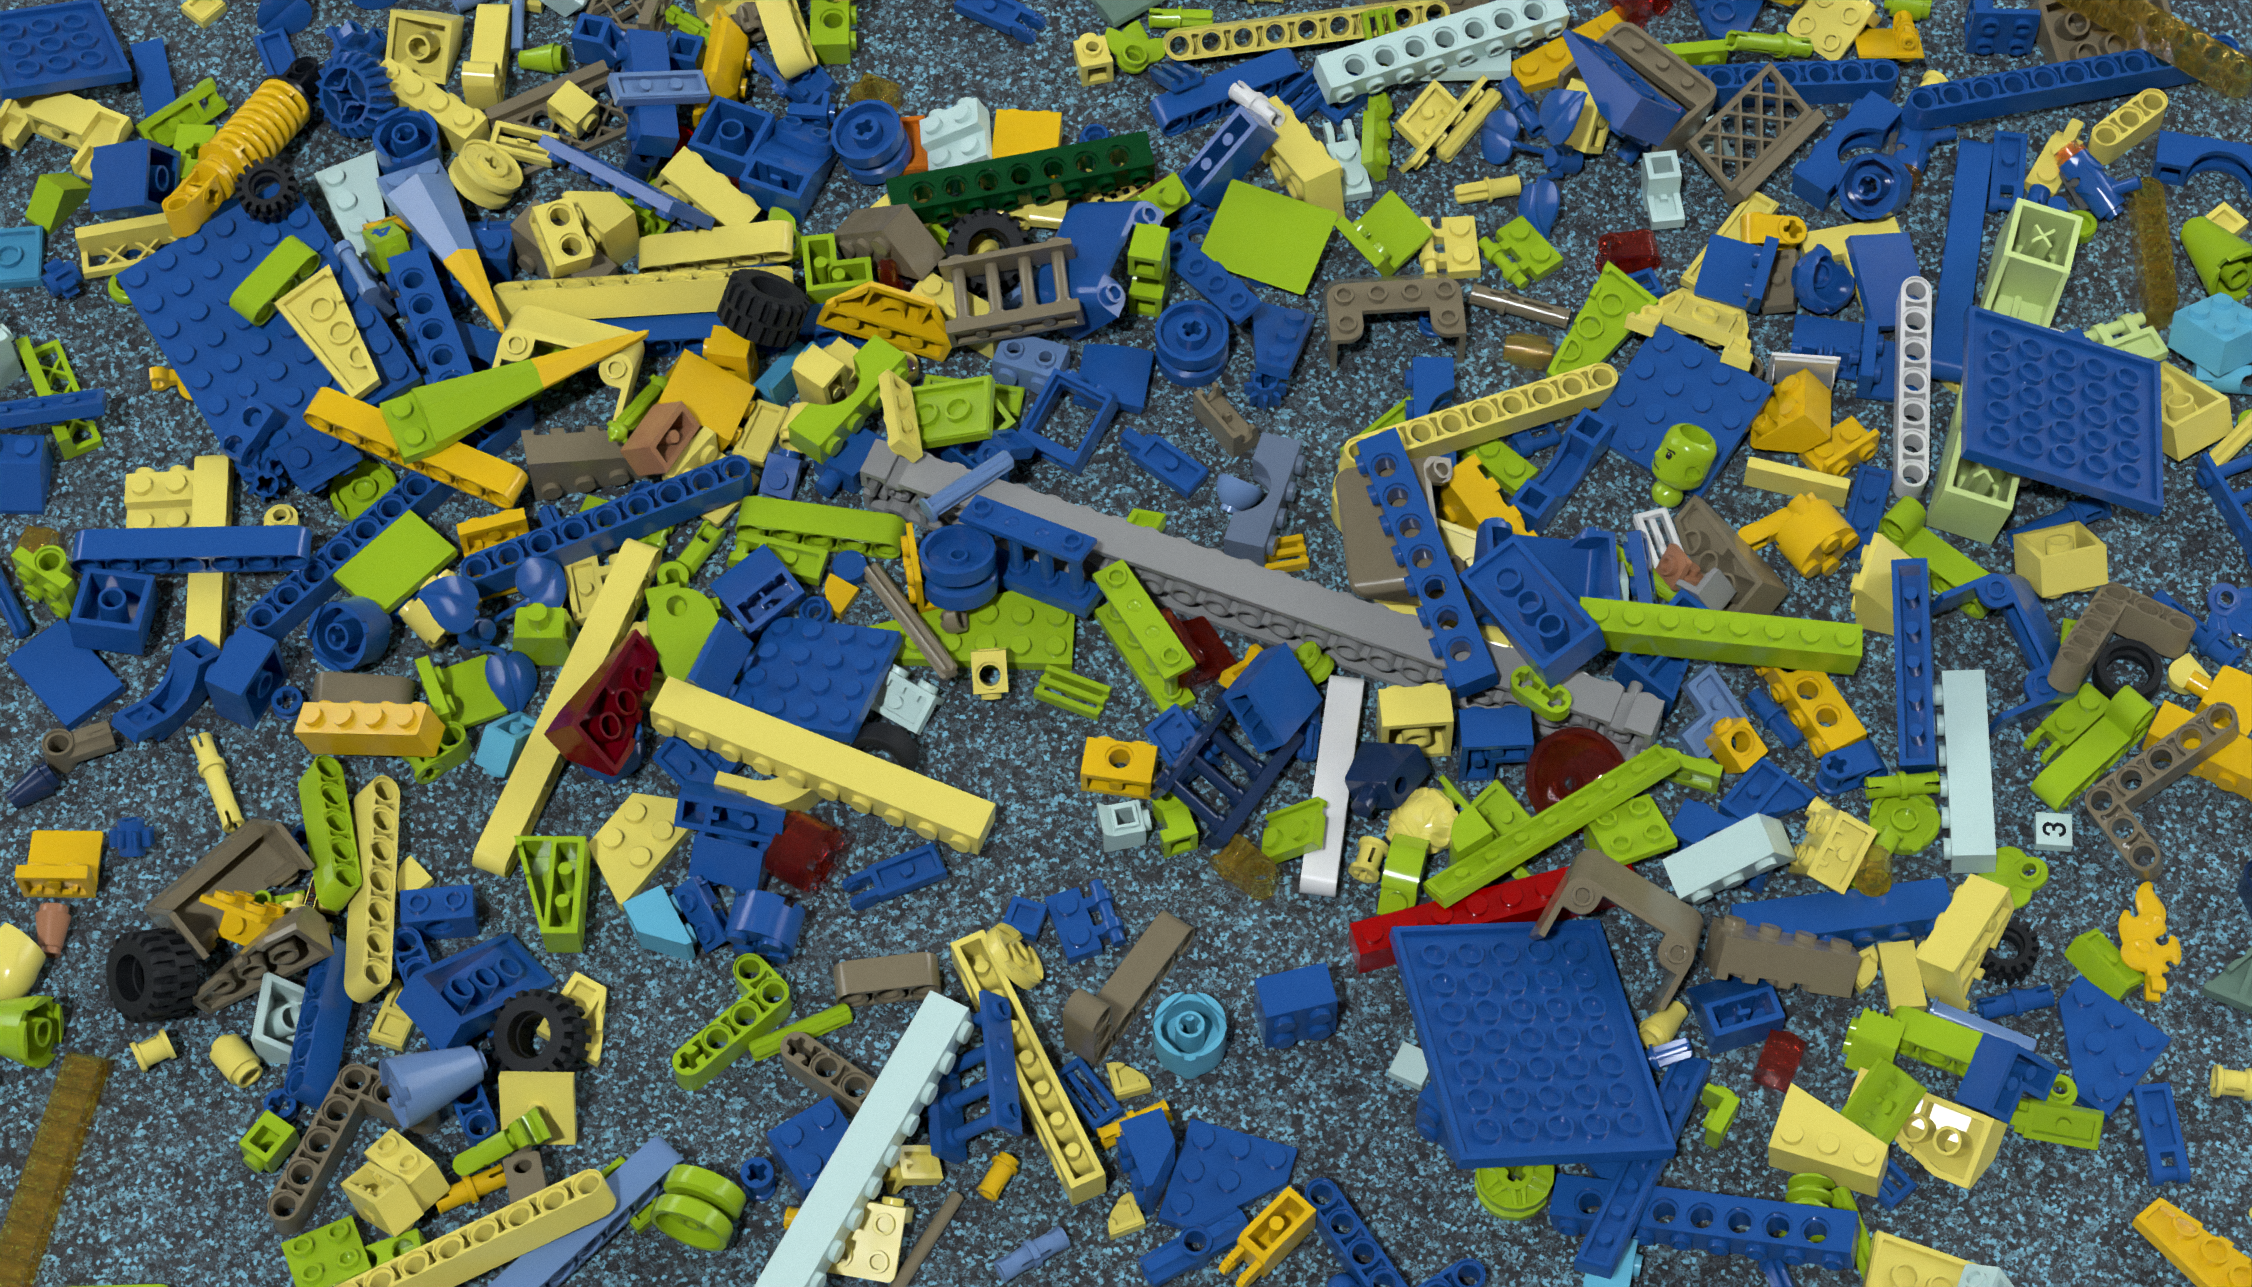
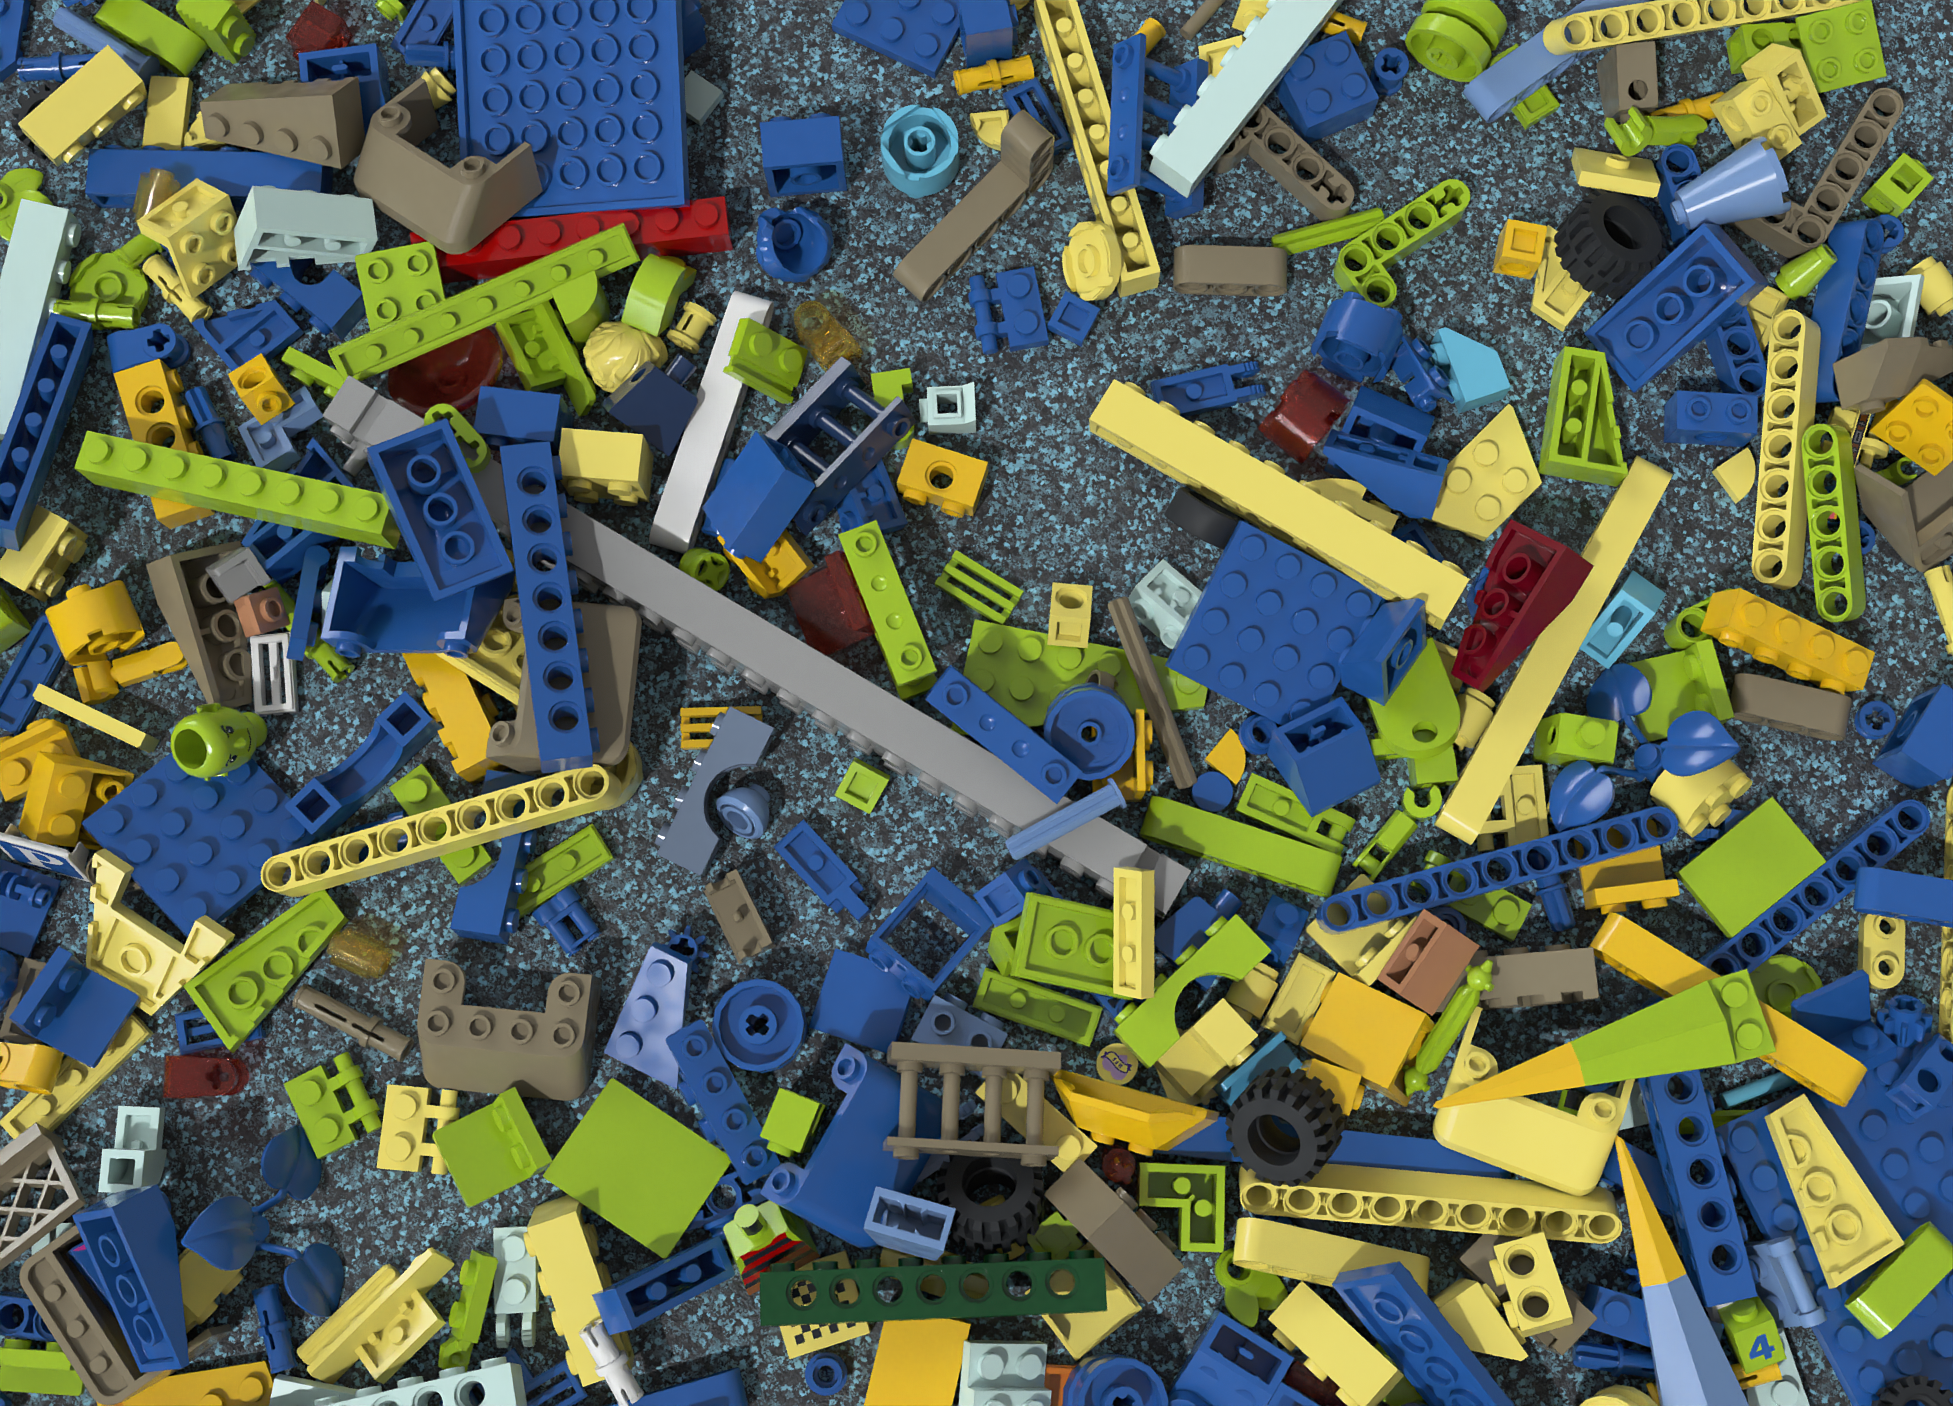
camera: 170 degrees left, 20 degrees up
(349, 633) = (1808, 775): blue brick -> none
(360, 1047) = (1805, 272): none -> lime cone
(622, 1027) = (1519, 249): none -> yellow brick
(1043, 199) = (909, 1223): none -> medium blue torso
(1290, 934) = (793, 243): none -> blue hair
(1374, 407) = (558, 908): none -> blue piece
(1487, 189) = (349, 1206): light yellow axle -> none

